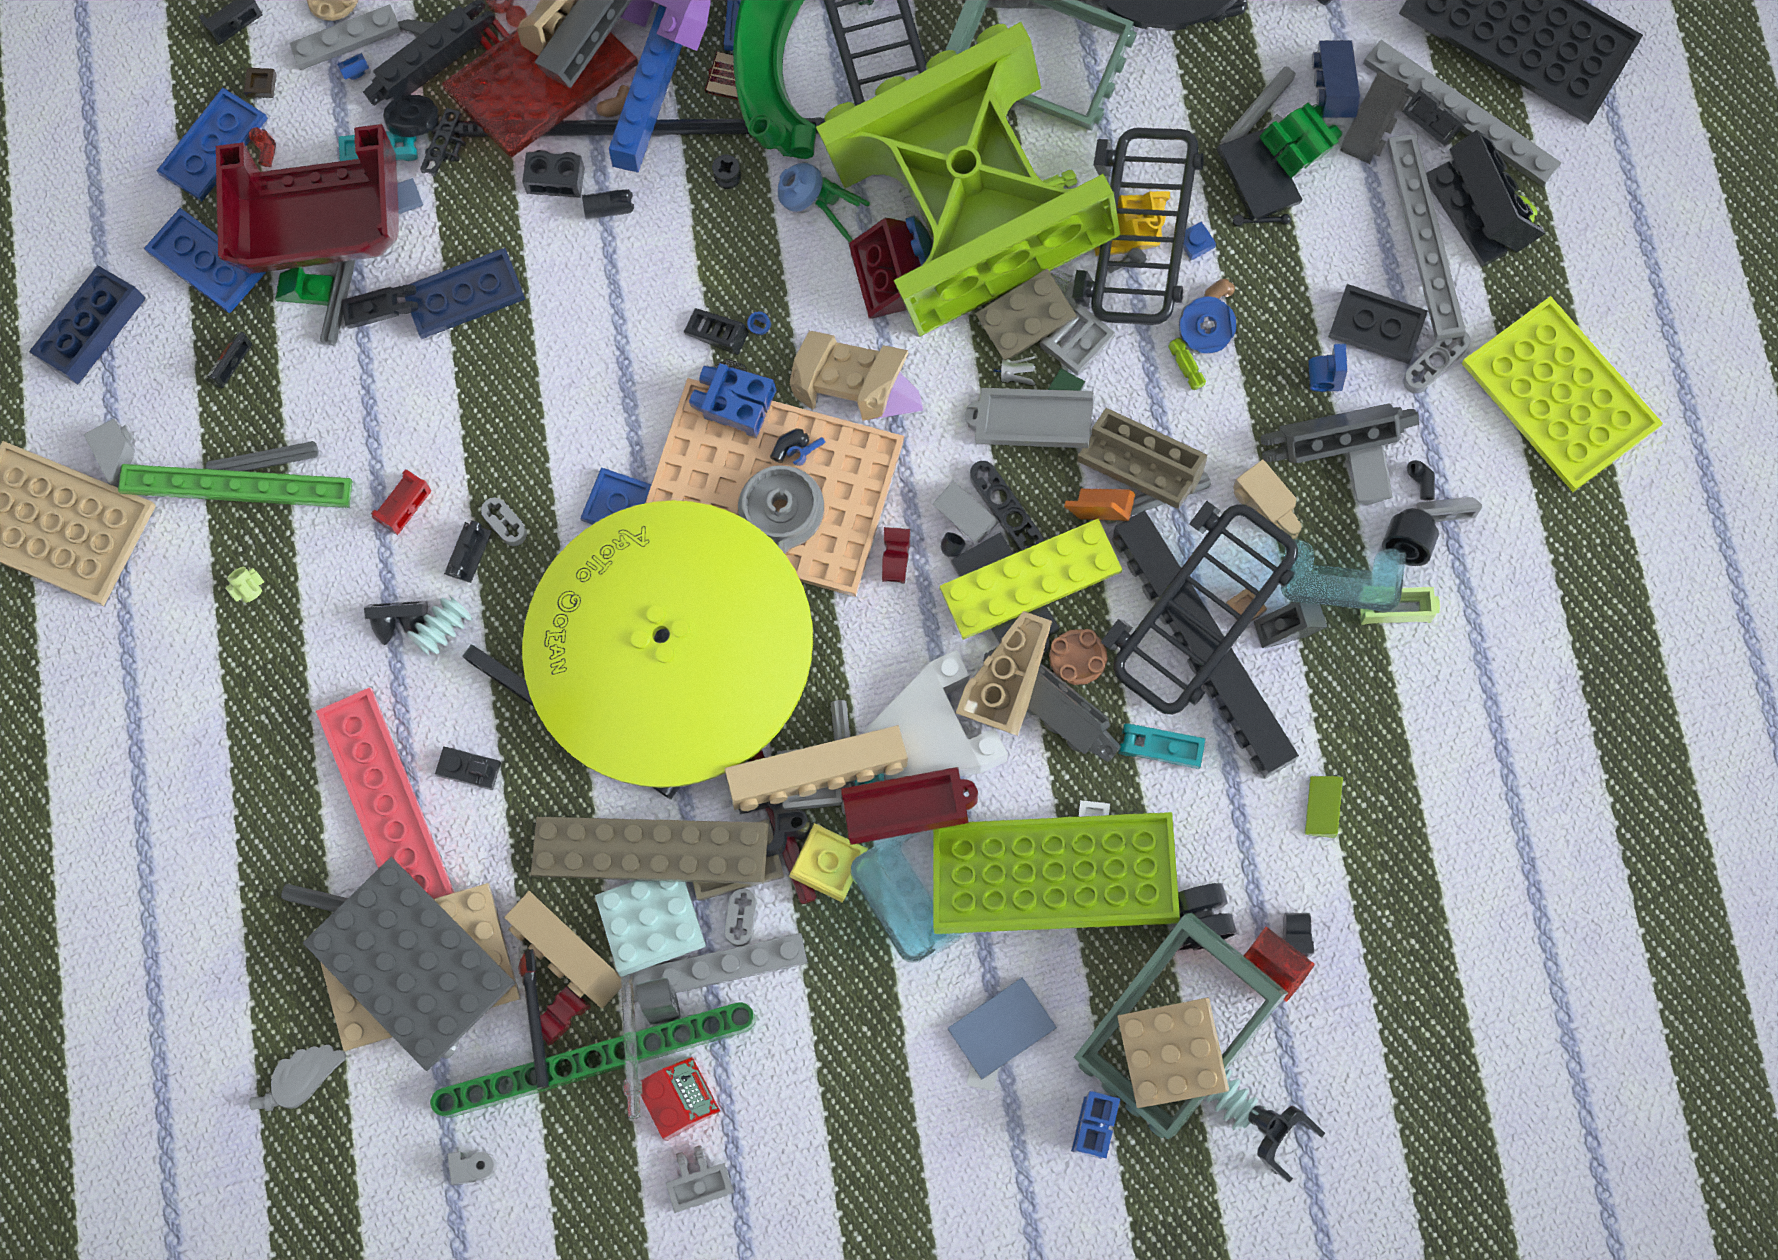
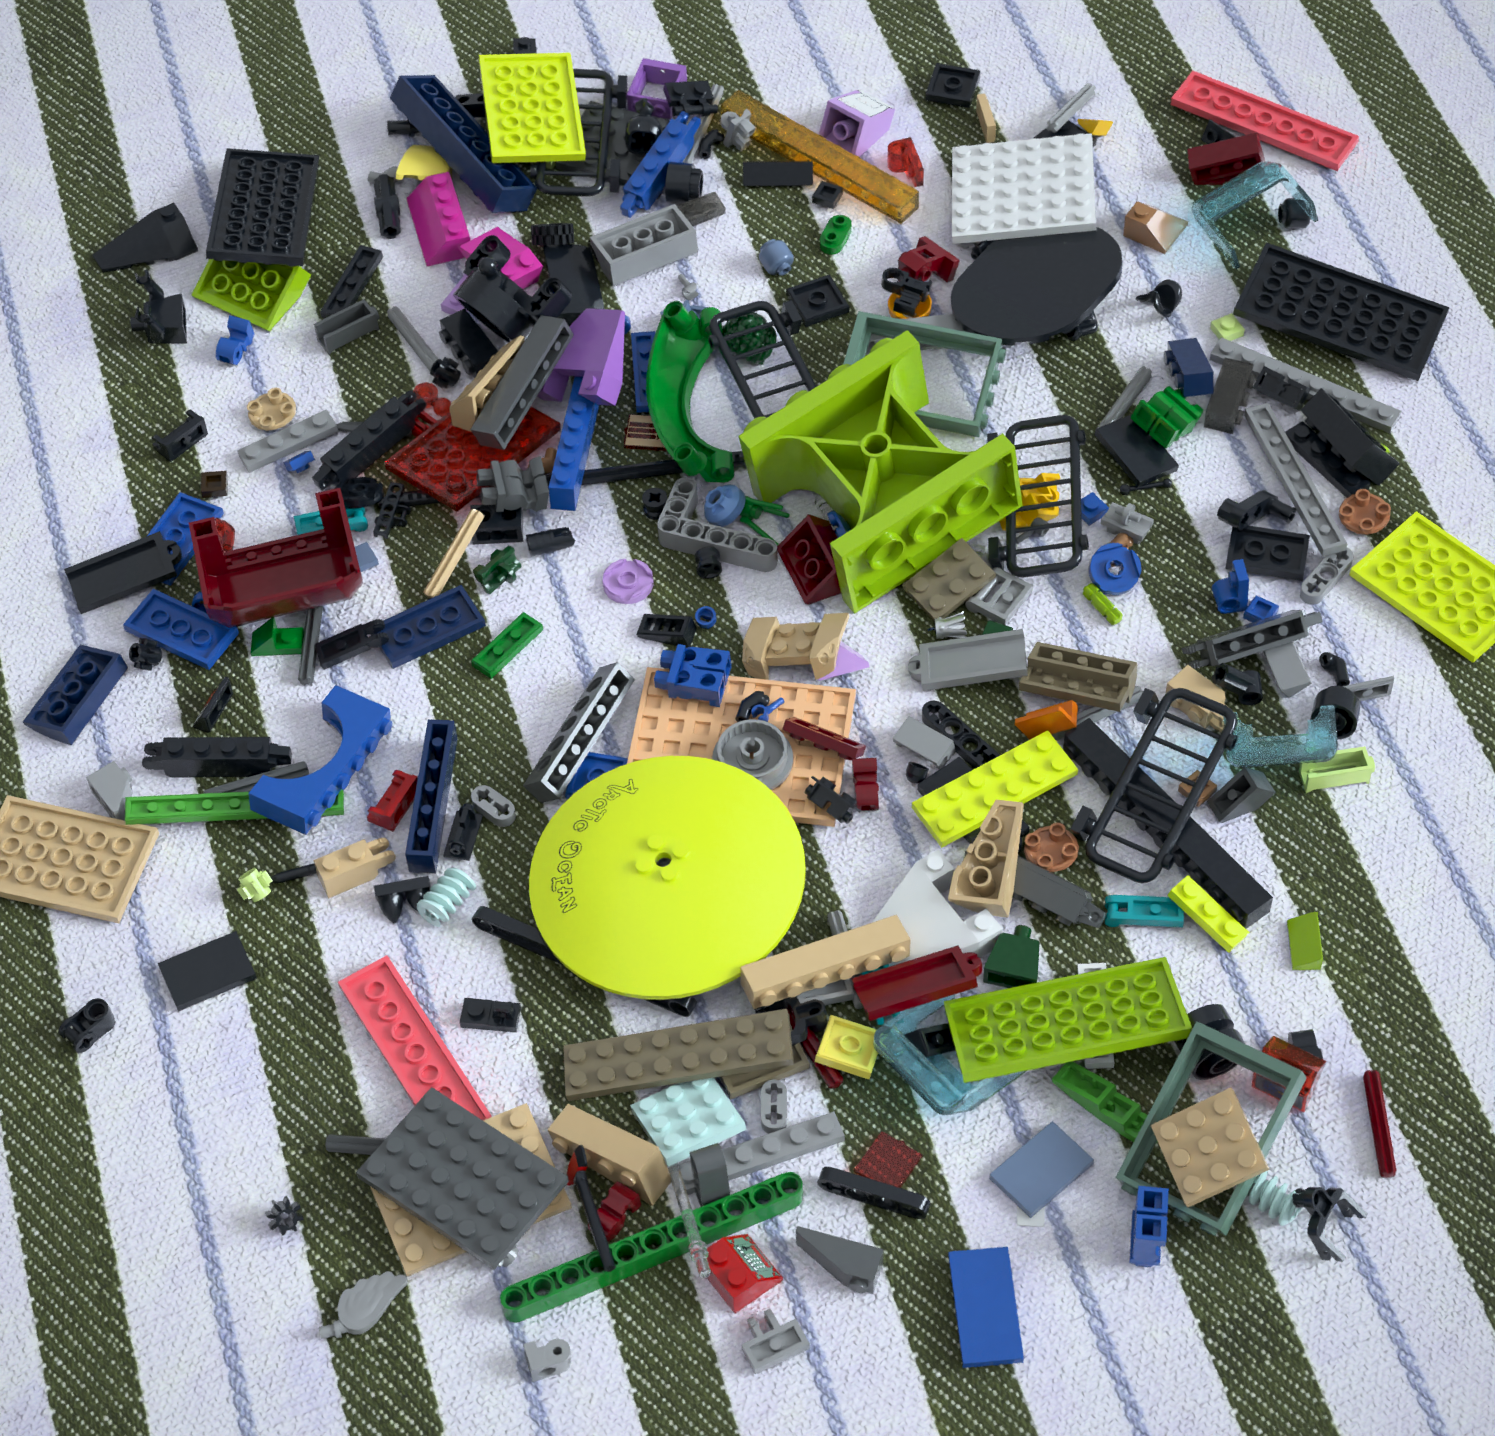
camera: 10 degrees left, 20 degrees down
(53, 726) = (87, 1026): none -> black piece
(151, 181) = (123, 571): none -> black piece
(163, 288) = (145, 654): none -> black gear
(186, 675) = (207, 971): none -> black tile
(222, 424) = (215, 756): none -> black hinge
(229, 971) = (284, 1224): none -> black gear
(298, 571) = (295, 873): none -> black piece
(304, 494) = (304, 799): none -> blue arch
(346, 576) = (352, 865): none -> tan hinge
(439, 505) = (431, 796): none -> dark blue brick
(501, 210) = (453, 553): none -> tan axle
(545, 326) = (507, 645): none -> green tile
(547, 233) = (498, 570): none -> dark green hips
(568, 138) = (514, 487): none -> dark grey hips
(603, 450) = (579, 733): none -> dark grey brick
(684, 264) = (627, 581): none -> lavender tile
(771, 255) = (708, 562): none -> black wheel
(777, 220) = (685, 535): none -> light grey beam
(788, 1107) = (848, 1261): none -> dark grey slope
(826, 1032) = (874, 1192): none -> black beam
(847, 997) = (888, 1161): none -> clear red piece
(858, 496) = (823, 738): none -> dark red plate
(865, 577) = (841, 805): none -> black hinge
(911, 871) = (932, 1040): none -> black slope
(917, 1176) = (985, 1307): none -> blue tile
(1015, 785) = (1013, 959): none -> dark green torso
(1081, 966) = (1101, 1099): none -> bright green slope
(1228, 761) = (1208, 913): none -> neon yellow plate
(1231, 266) = (1126, 520): none -> light grey hips
(1319, 488) = (1244, 684): none -> black piece
(1356, 395) = (1260, 609): none -> blue tile
(1359, 1028) = (1379, 1124): none -> dark red axle
(1387, 261) = (1253, 508): none -> black beam
(1390, 26) = (1227, 327): none -> yellowish green plate
(1493, 288) = (1364, 513): none -> nougat dish

